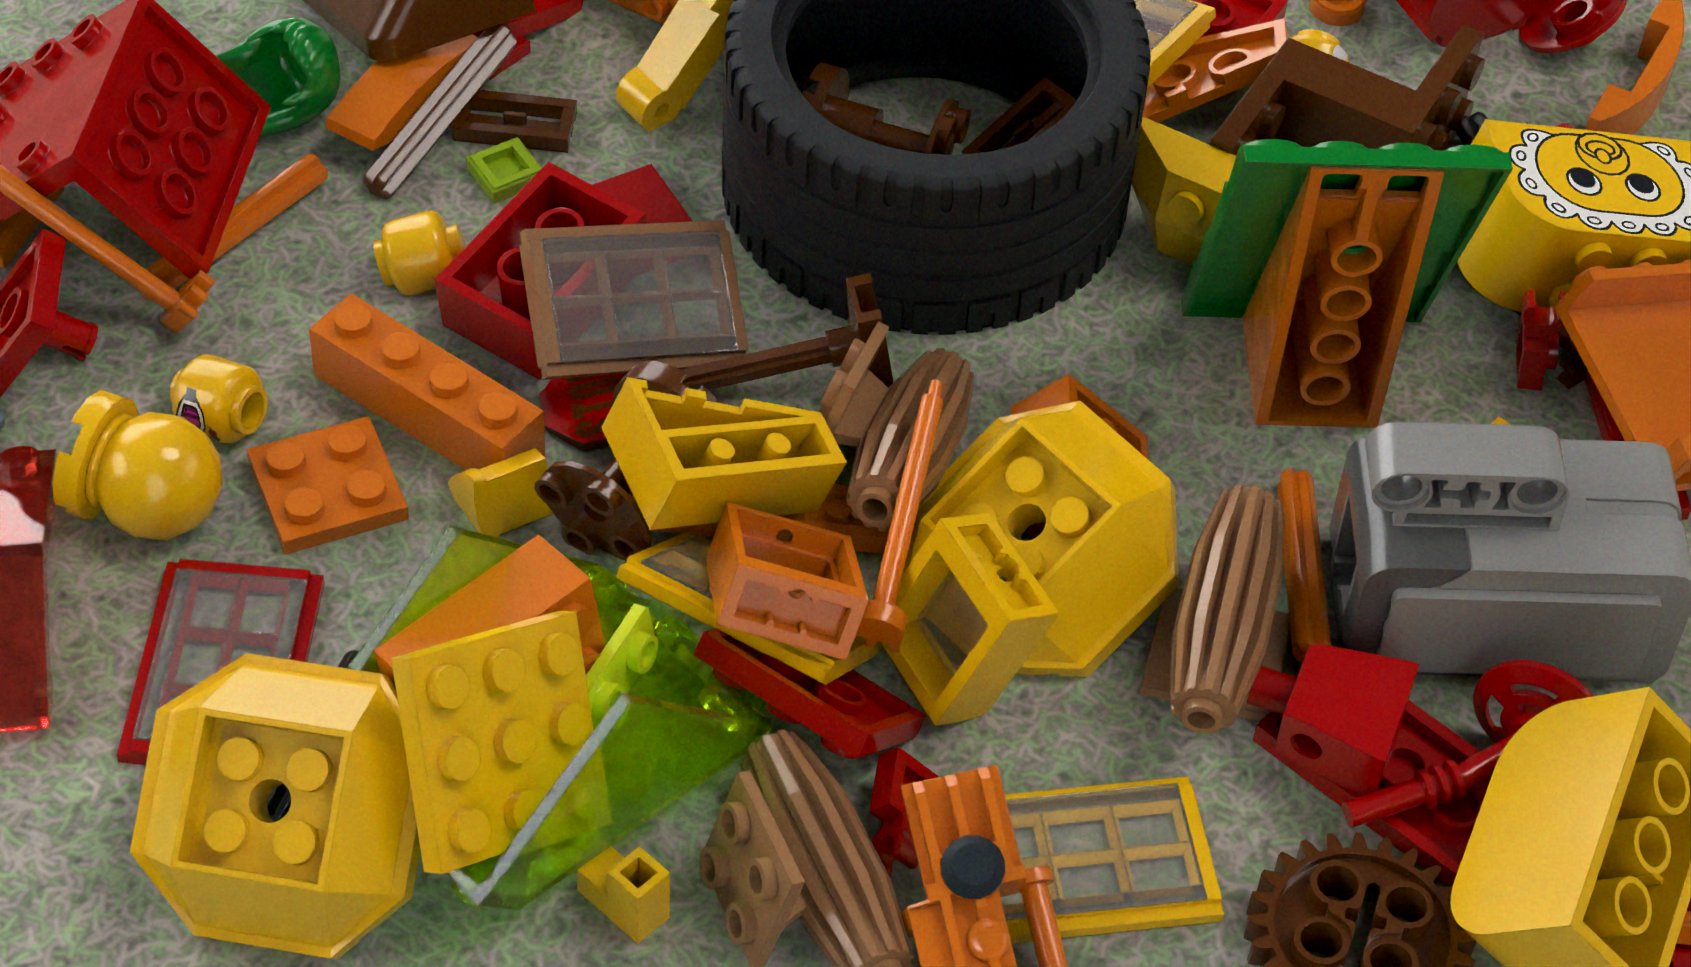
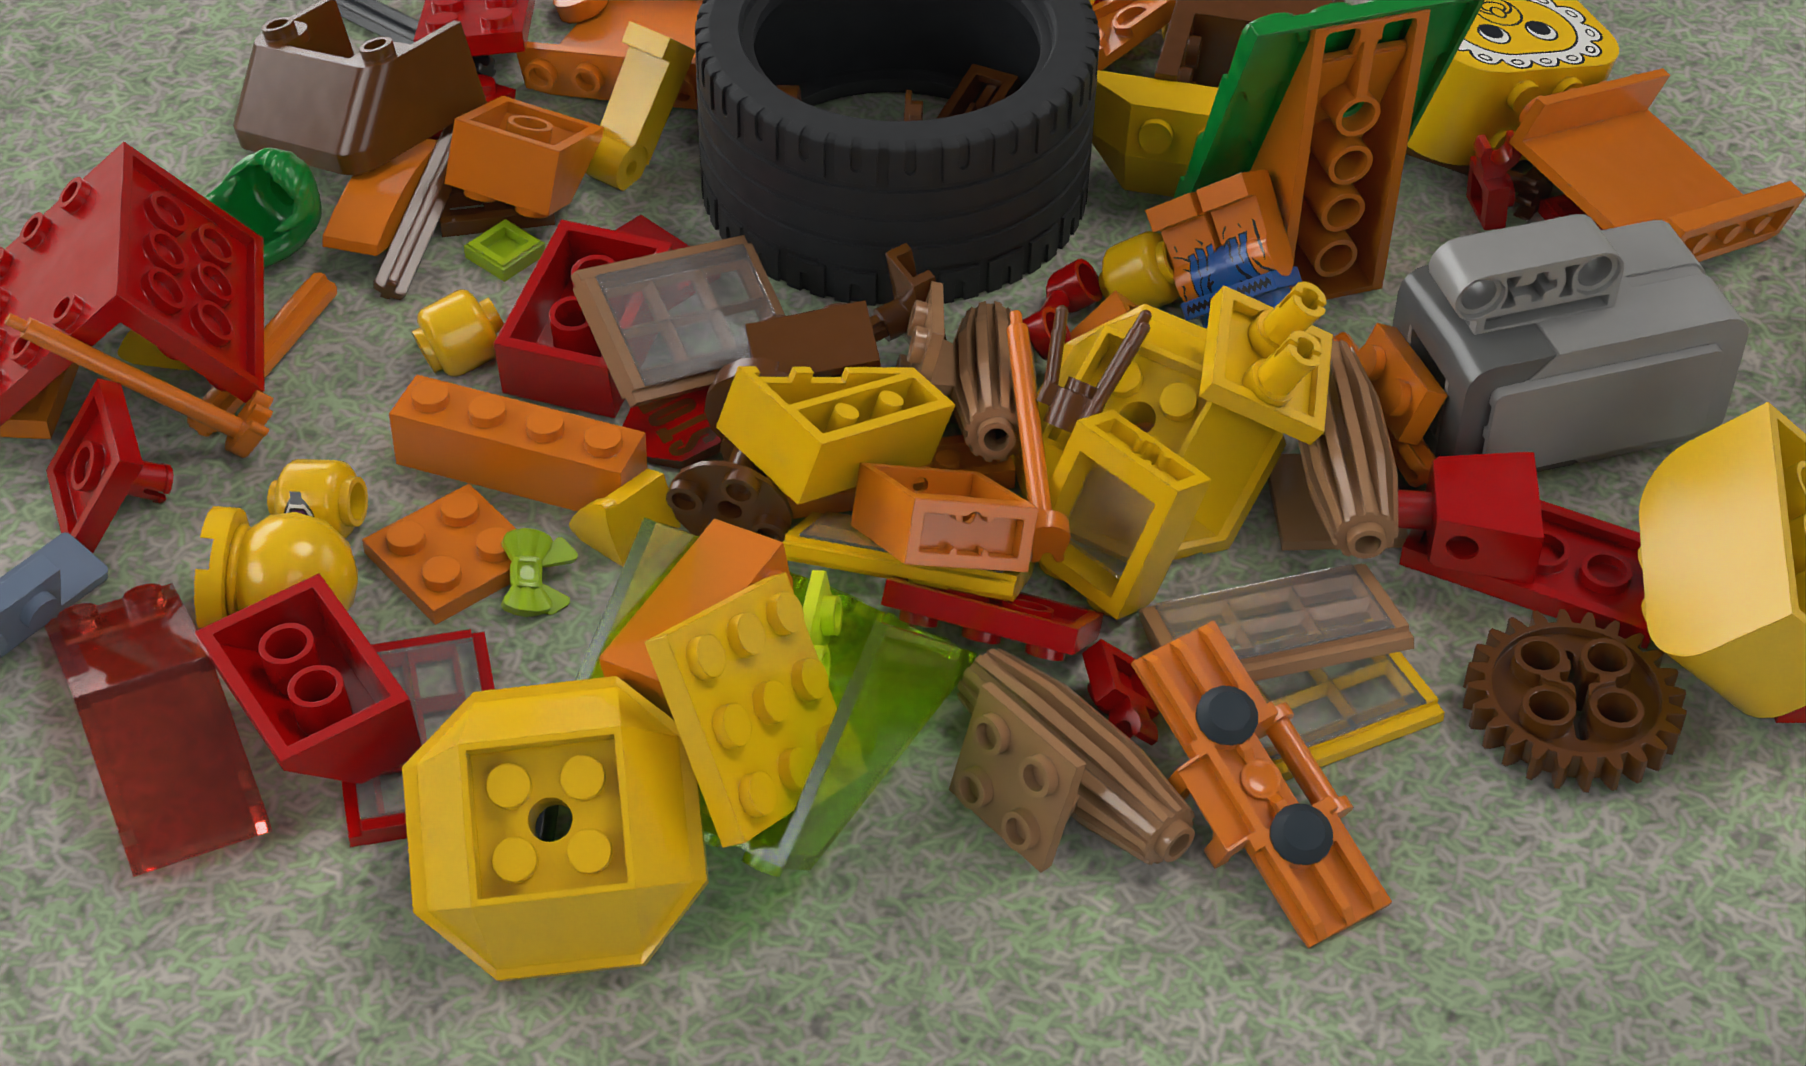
camera: 15 degrees left, 5 degrees down
(120, 598) = (313, 685): none -> red slope
(393, 505) = (529, 553): none -> lime piece
(549, 75) = (520, 155): none -> orange slope
(627, 890) = (902, 832): yellow piece -> none
(744, 360) = (817, 339): none -> reddish brown brick
(964, 490) = (1078, 398): none -> reddish brown plant
(1041, 353) = (1070, 286): none -> red bar
(1096, 777) = (1291, 621): none -> clear piece
(1124, 354) = (1139, 271): none -> yellow head
(1165, 502) = (1269, 360): none -> yellow plate
(1205, 360) = (1227, 238): none -> orange hips
(1318, 548) = (1403, 383): none -> orange plate
(1454, 779) = (1630, 476): red dish -> none

